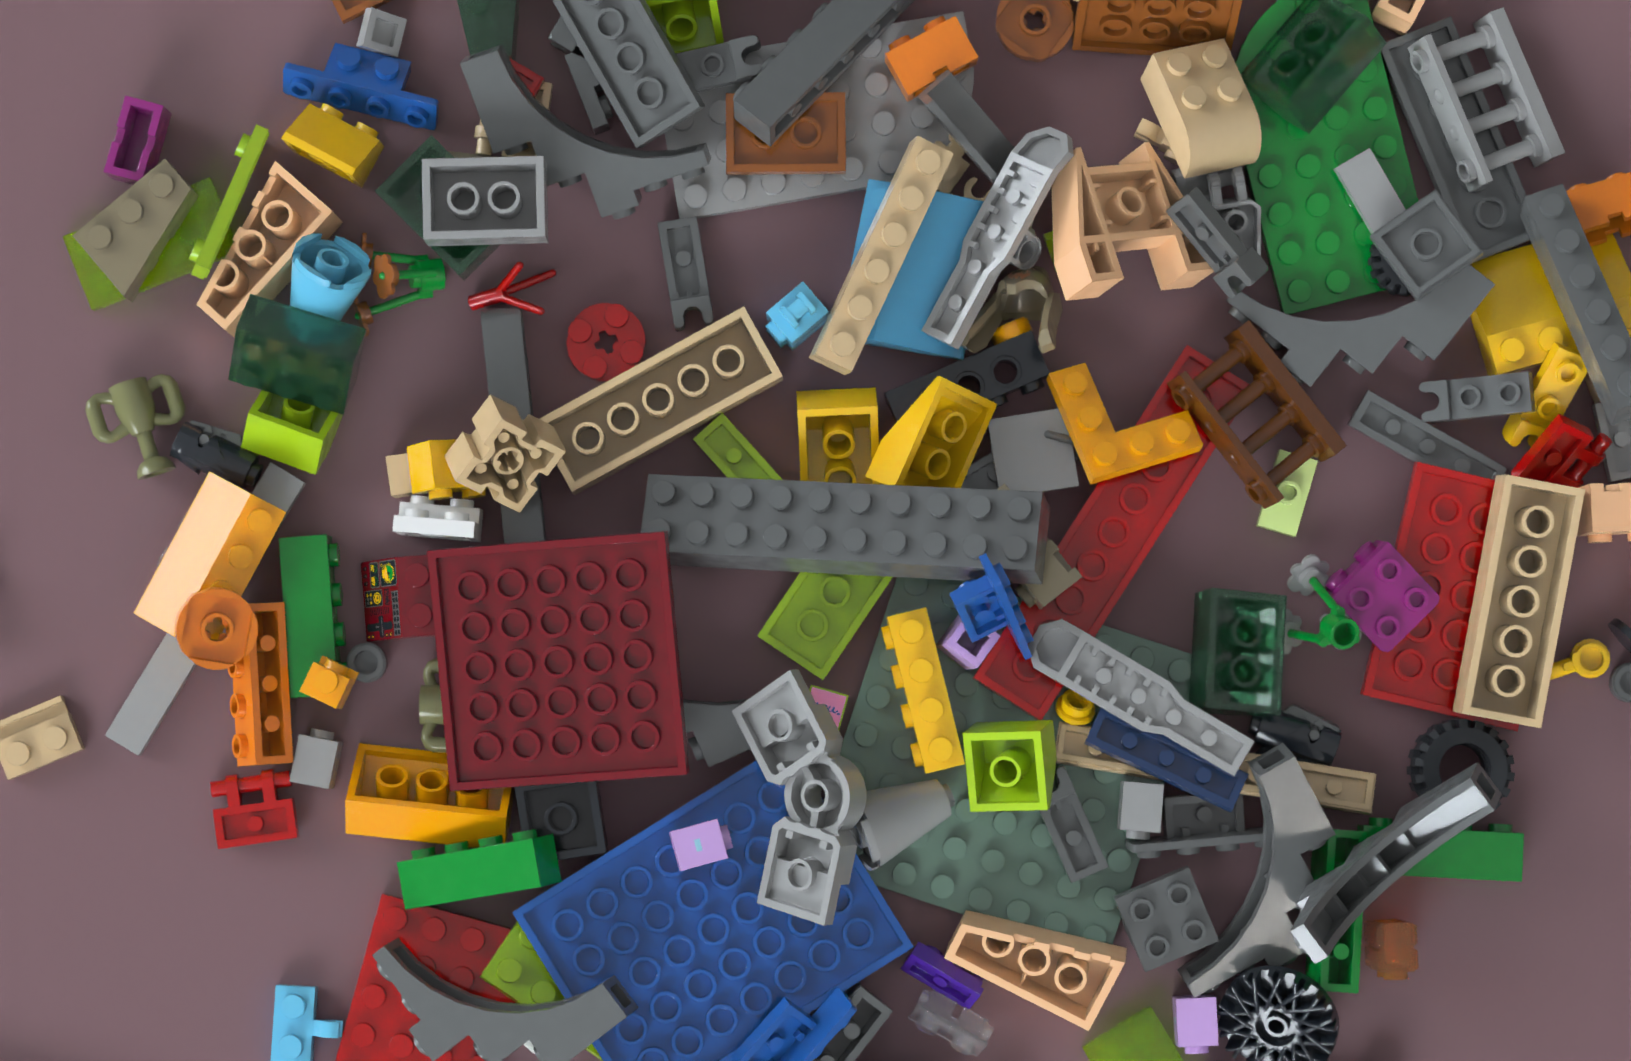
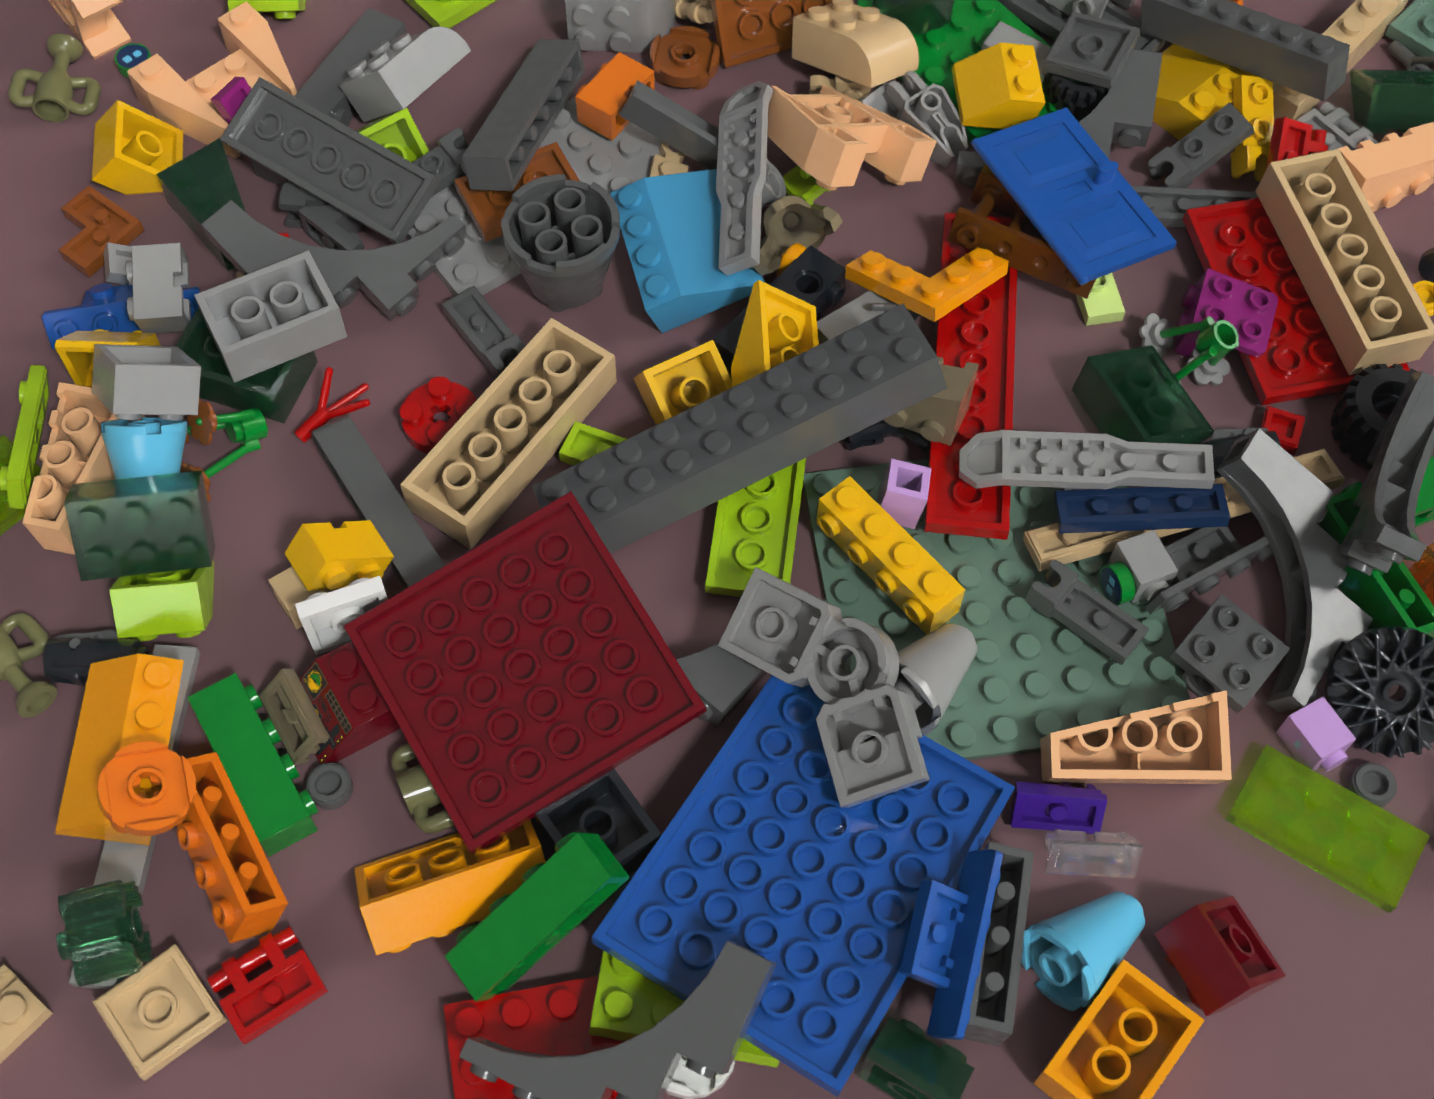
camera: 25 degrees left, 25 degrees down
(144, 721) = (103, 932): none -> clear green brick
(165, 792) = (159, 1012): none -> tan plate
(316, 759) = (314, 899): light grey brick -> none
(329, 682) = (293, 793): light orange brick -> none
(348, 223) = (146, 381): none -> light grey piece
(360, 588) = (297, 711): none -> dark tan tile
(398, 96) = (157, 281): none -> light grey brick
(504, 453) = (383, 504): tan brick -> none
(700, 844) = (752, 775): lavender brick -> none
(795, 200) = (562, 238): none -> dark grey cone
(795, 317) = (604, 308): medium azure brick -> none
(881, 255) = (652, 222): tan brick -> none
(990, 605) = (914, 423): blue bracket -> none
(1010, 765) = (1007, 575): lime slope -> none
(1074, 708) = (1031, 512): yellow plate -> none
(1109, 810) = (1117, 583): none -> tile
(1217, 243) = (922, 114): dark grey plate -> none
(1304, 404) = (1074, 195): none -> blue door
(1313, 235) = (998, 86): none -> yellow slope
(1363, 725) = (1286, 425): none -> red tile

